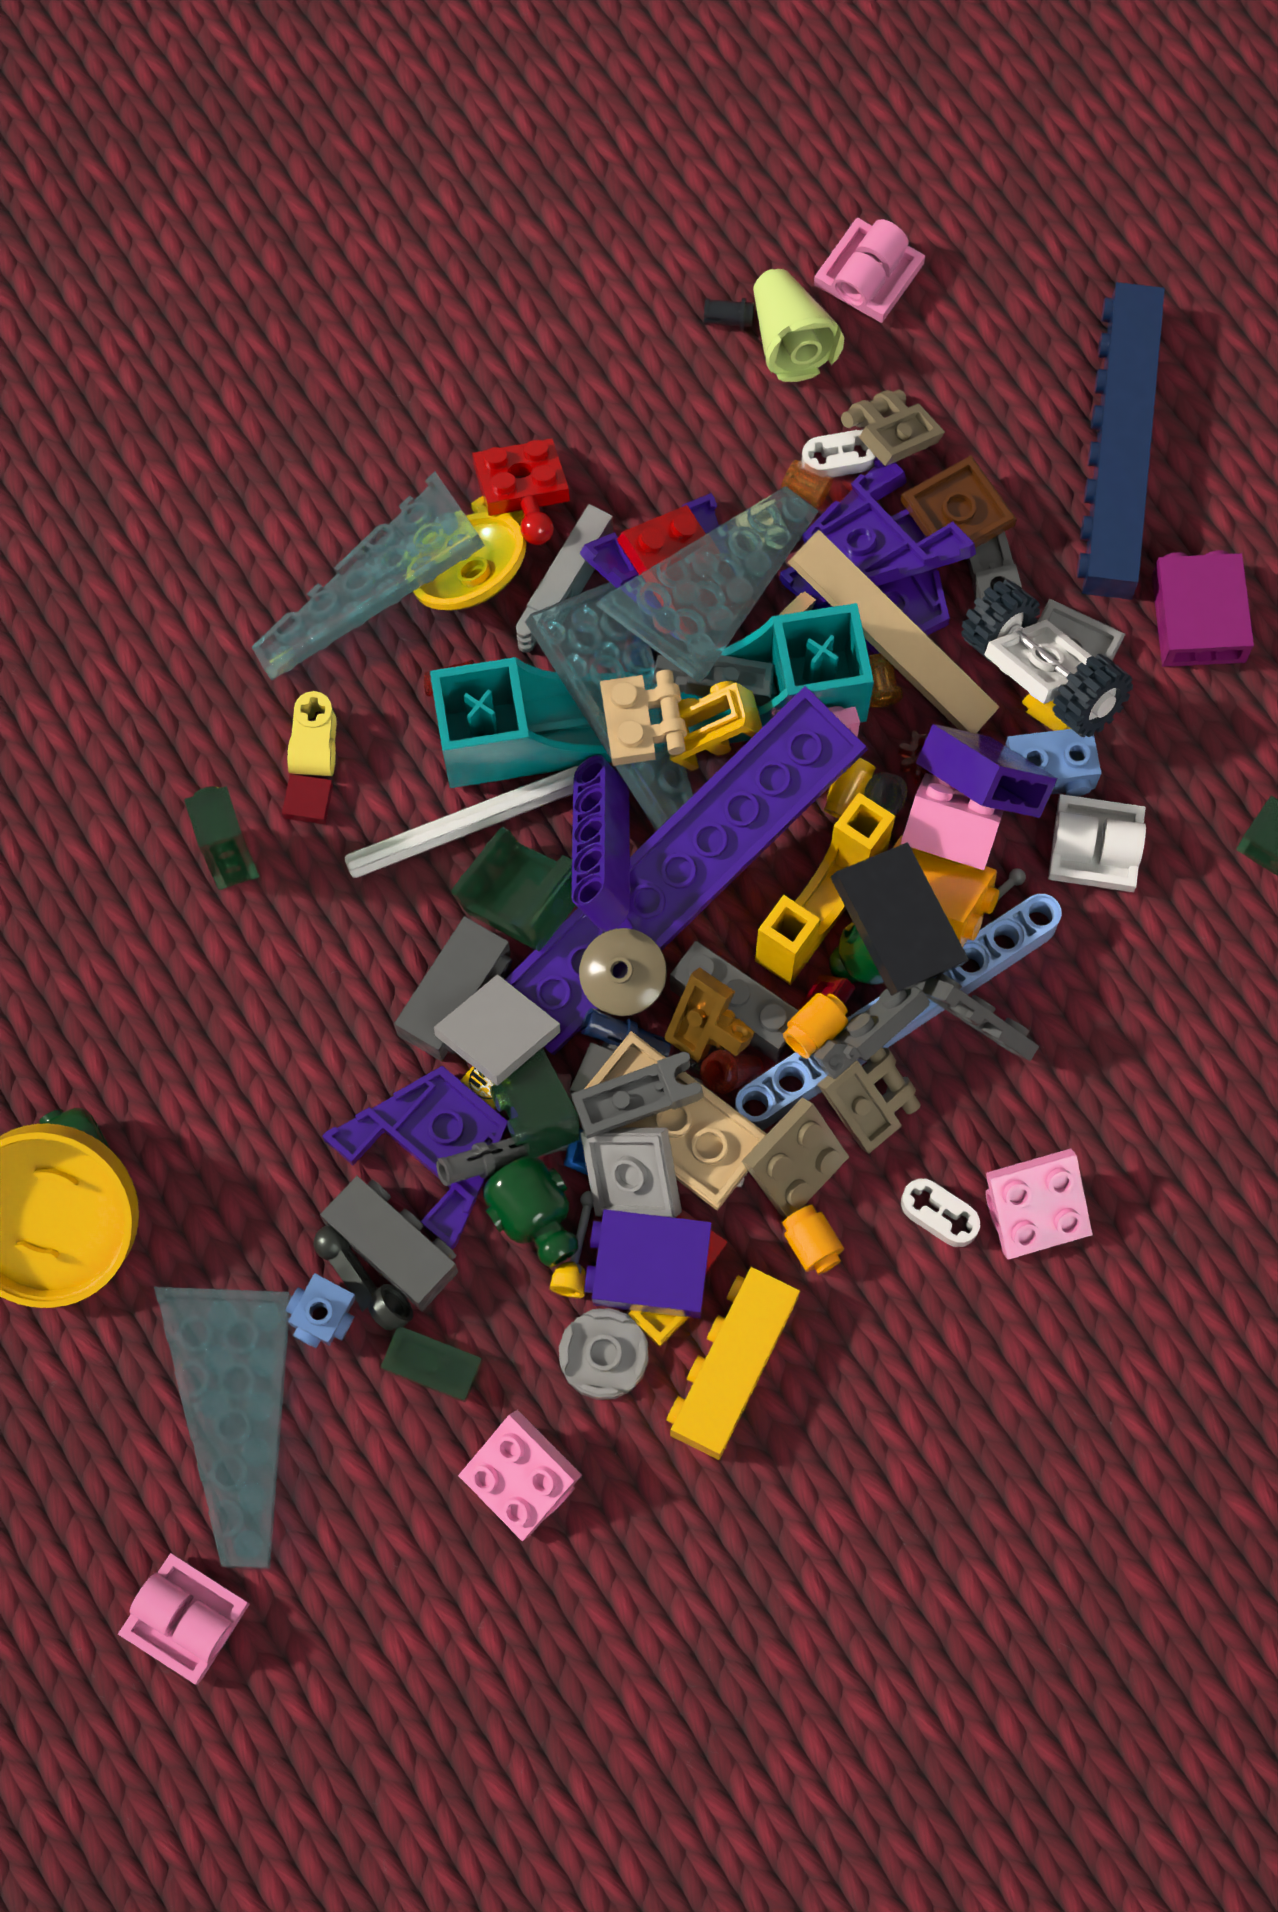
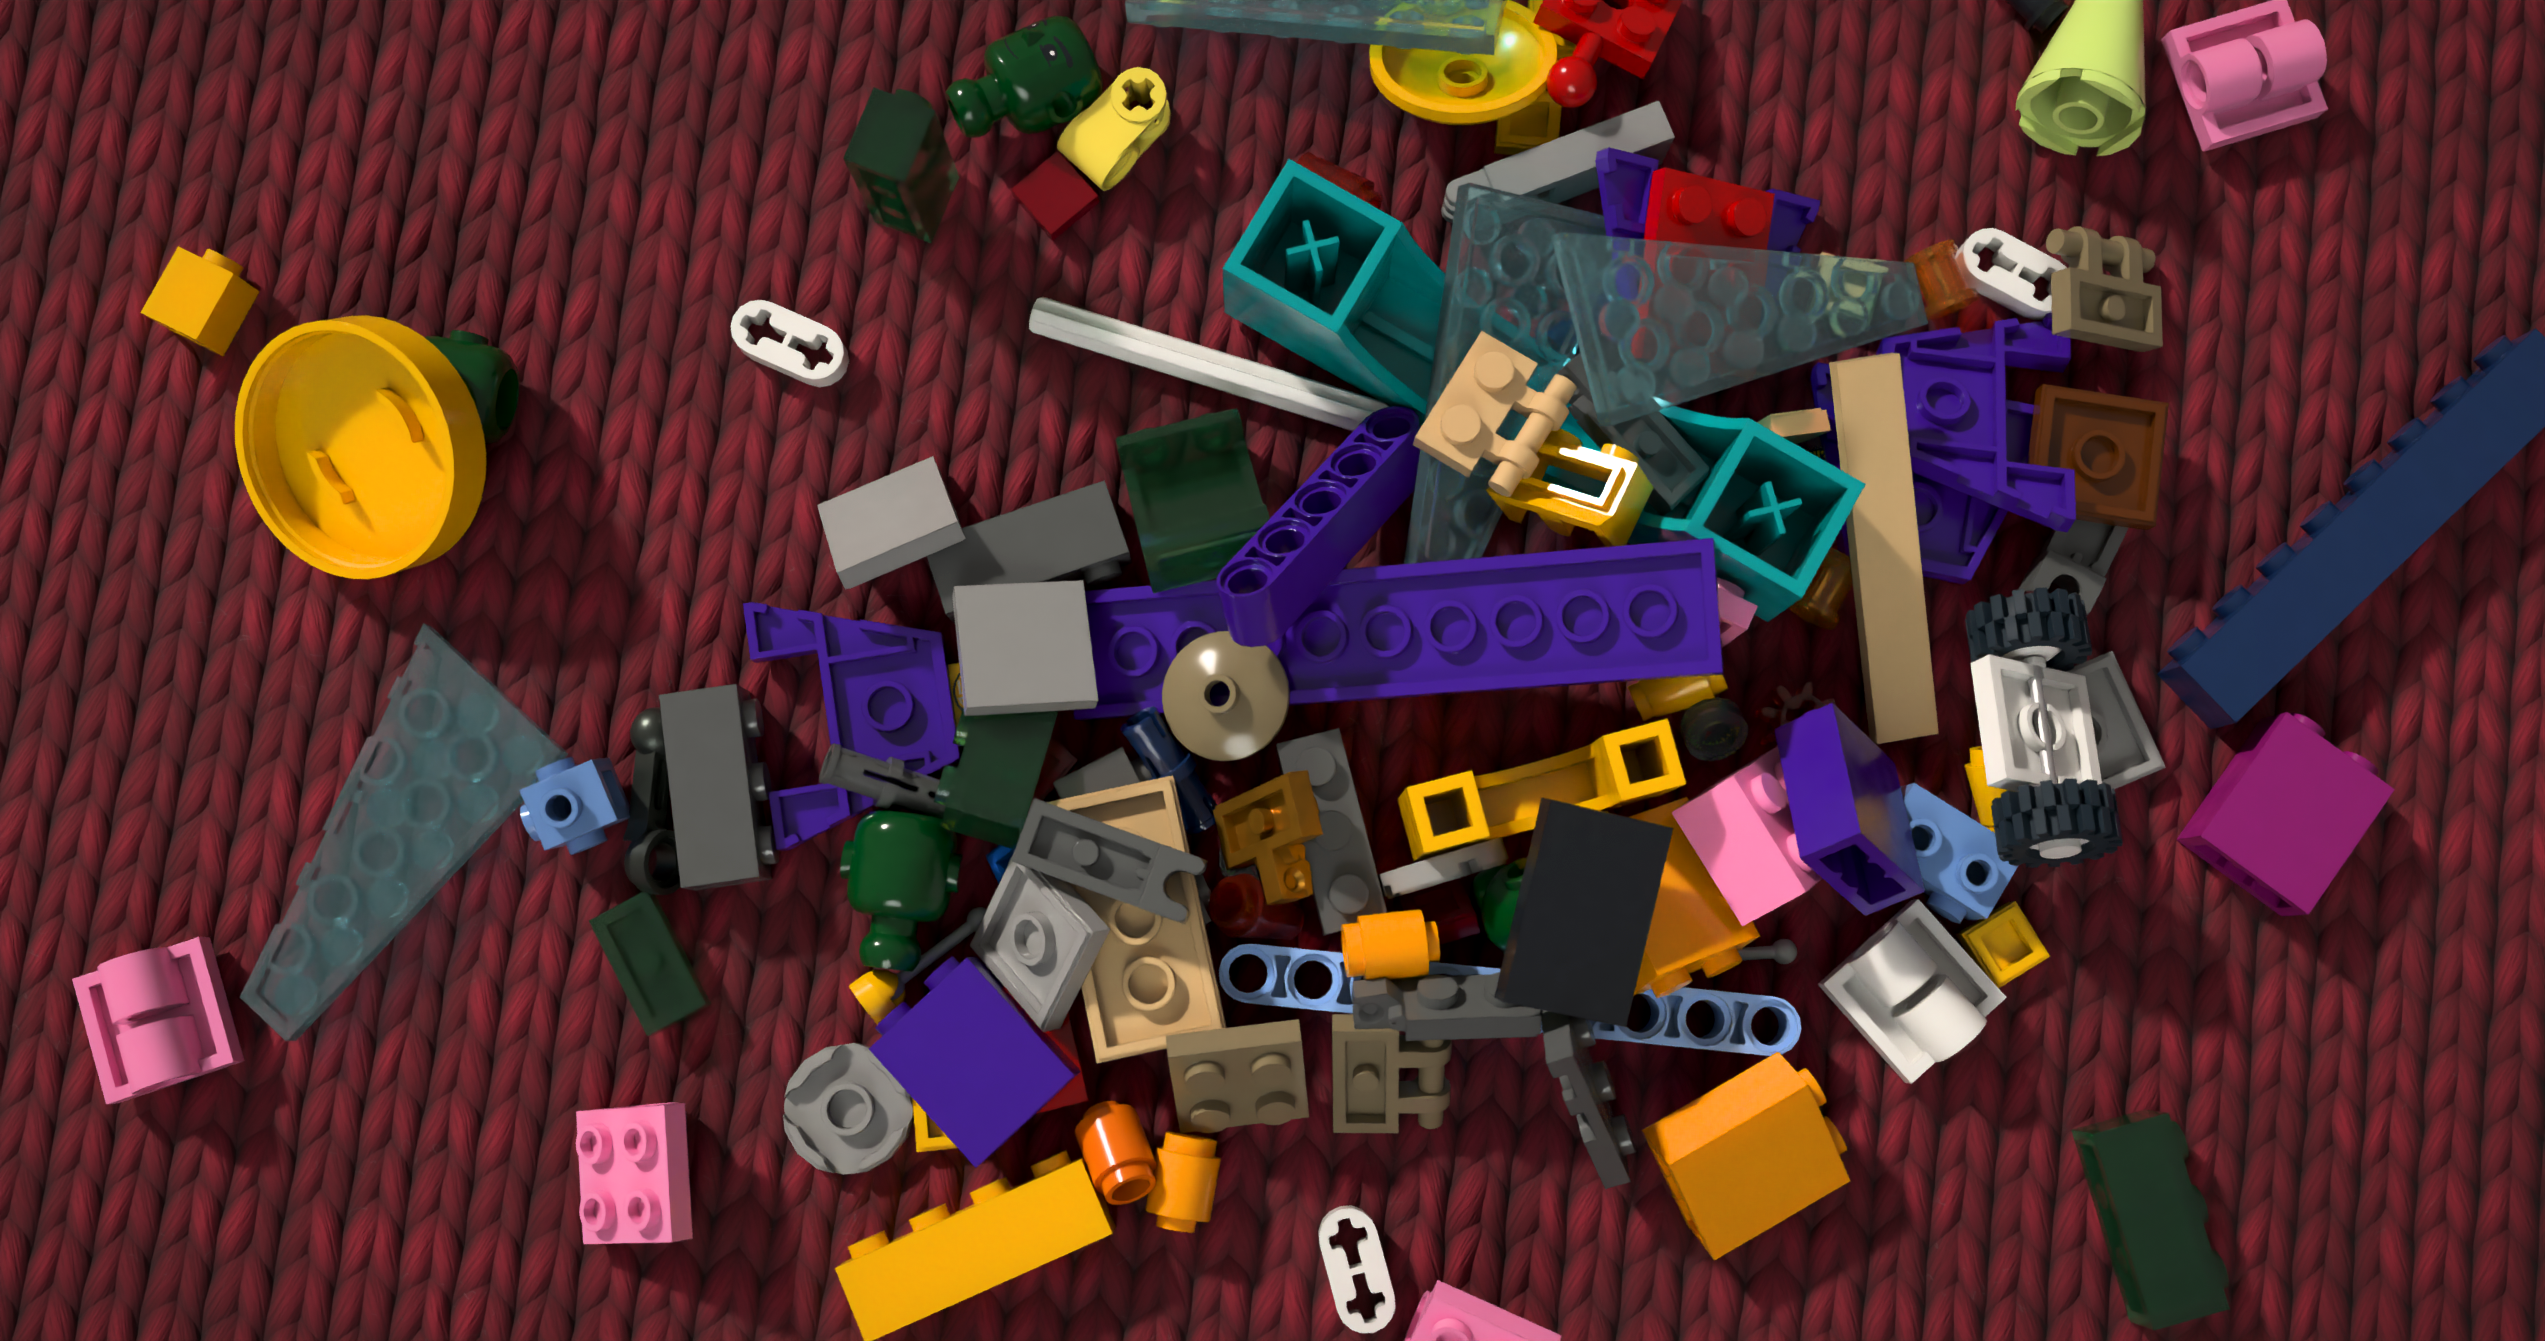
camera: 35 degrees right, 10 degrees up
(226, 976) = (796, 331): none -> white beam
(248, 745) = (1032, 79): none -> dark green piece
(367, 1029) = (890, 523): none -> light grey tile
(530, 572) = (1528, 127): none -> yellow tile
(766, 1251) = (1116, 1152): none -> orange brick
(809, 967) = (1443, 868): none -> light grey tile
(1085, 985) = (1749, 1153): none -> light orange brick
(1122, 783) = (2003, 944): none -> yellow tile

